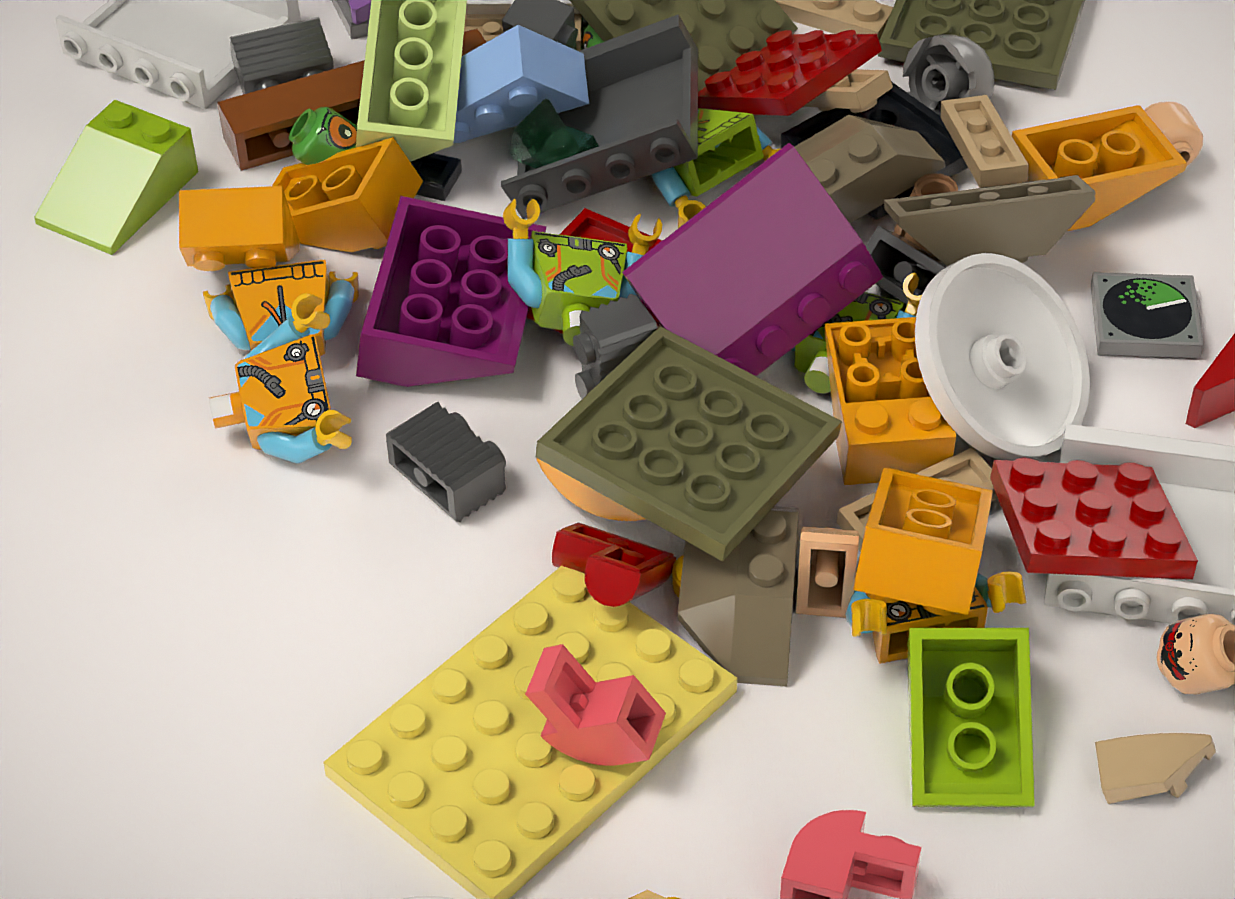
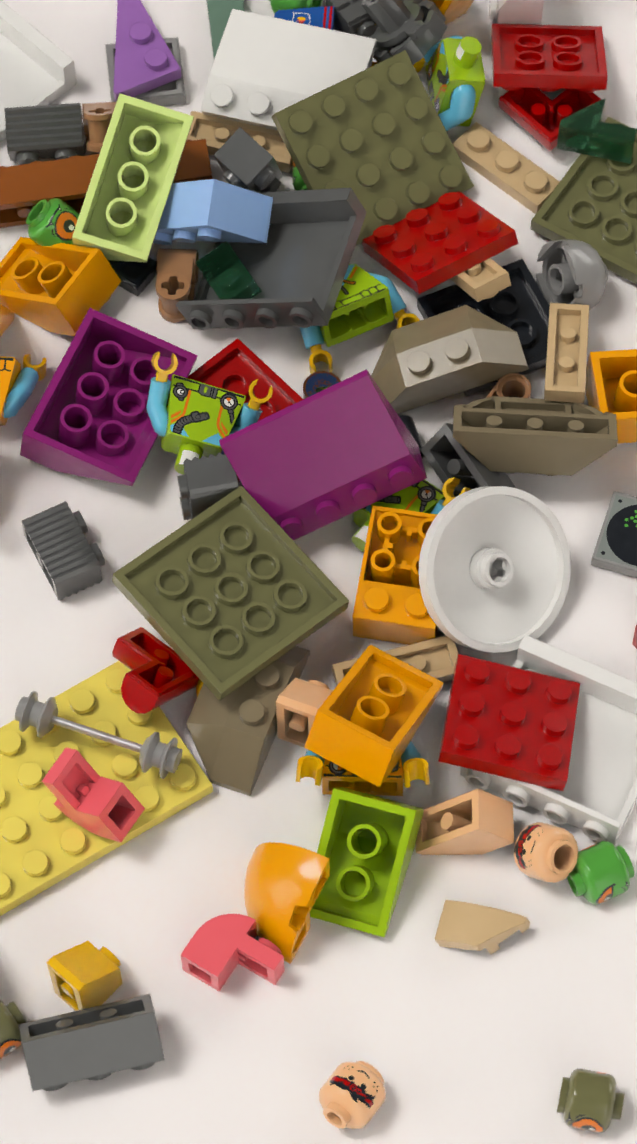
camera: 15 degrees right, 15 degrees up
(347, 38) = (96, 123): none -> medium nougat piece
(485, 165) = (175, 280): none -> medium nougat piece
(492, 635) = (44, 716): none -> light grey axle
(885, 765) = (281, 891): none -> light orange brick
(1087, 648) = (466, 825): none -> light nougat slope

